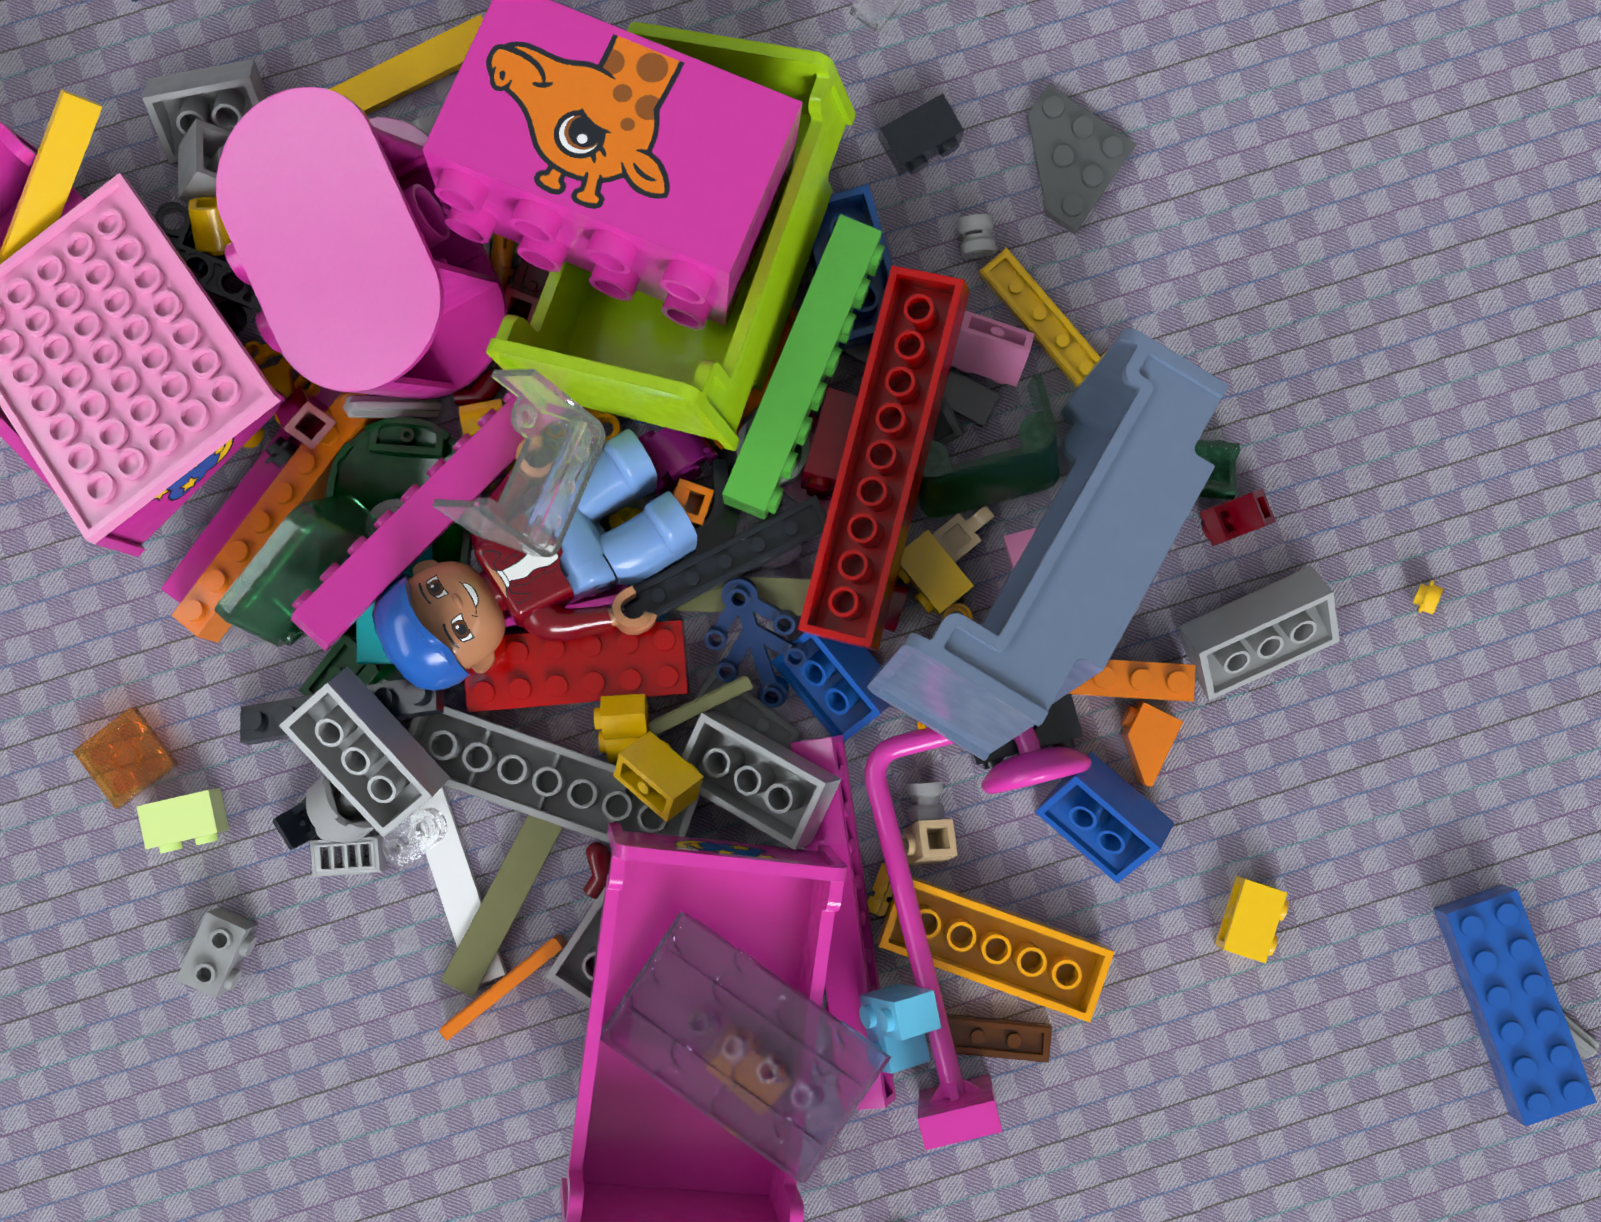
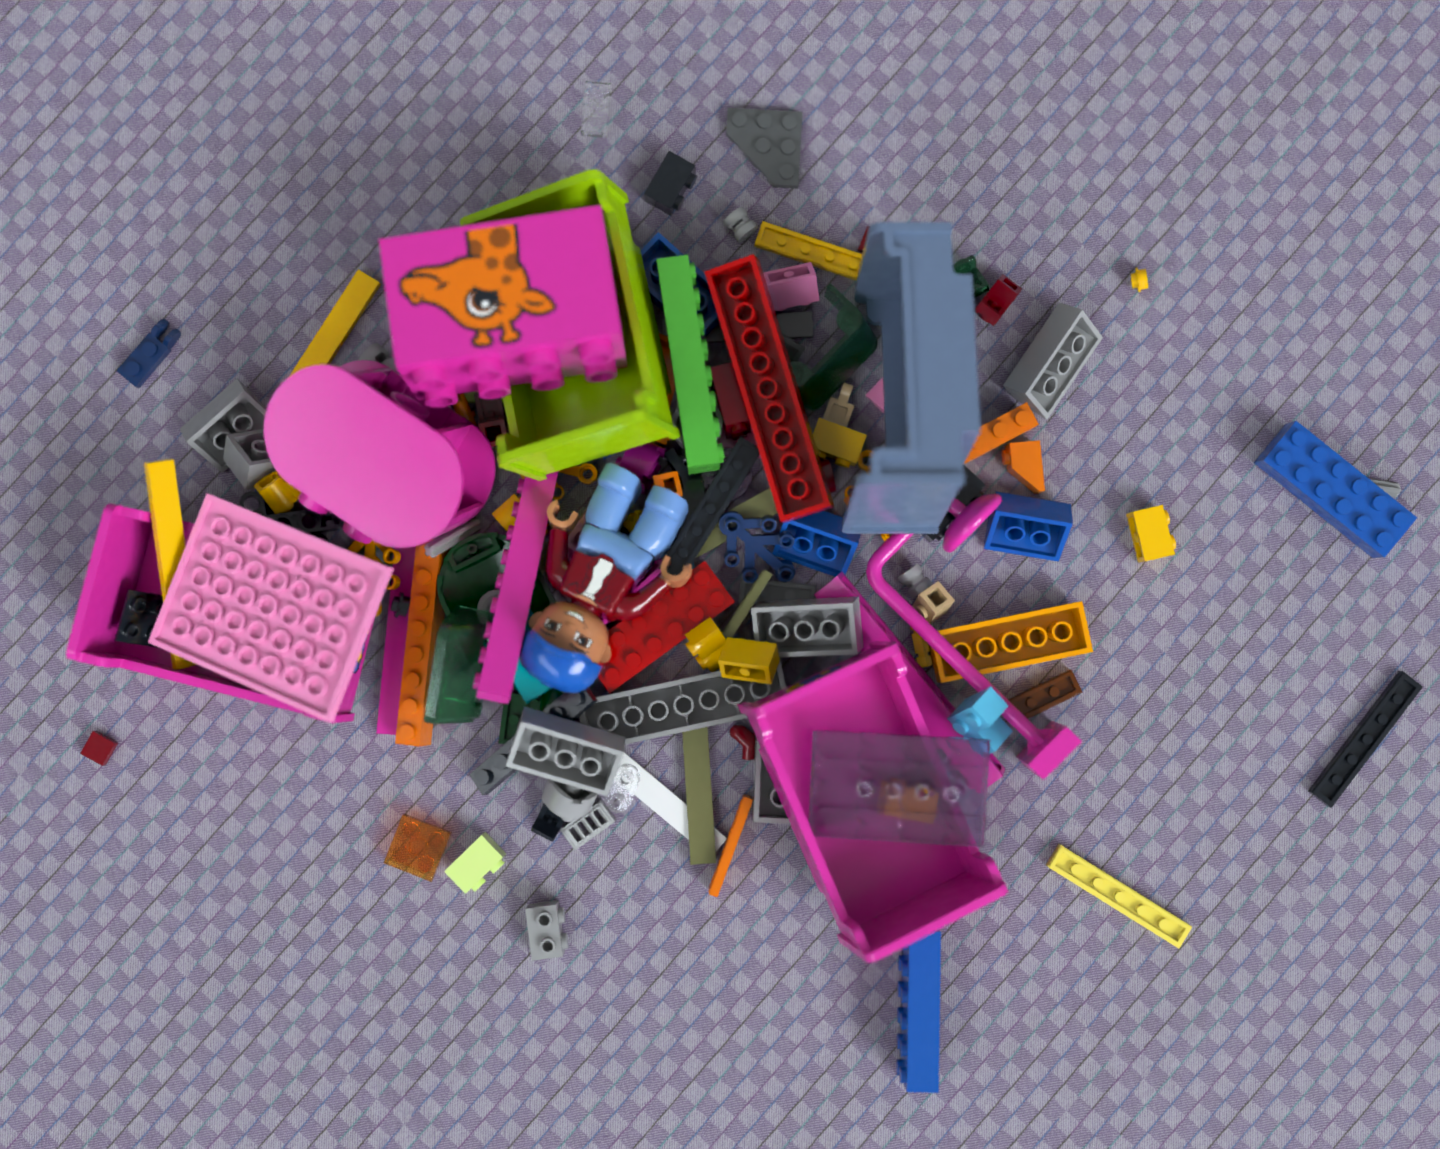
camera: 35 degrees left, 0 degrees up
(305, 417) = (406, 574): dark red brick -> none
(483, 390) = (499, 495): dark red arm -> none
(548, 474) = (575, 516): clear windscreen -> none

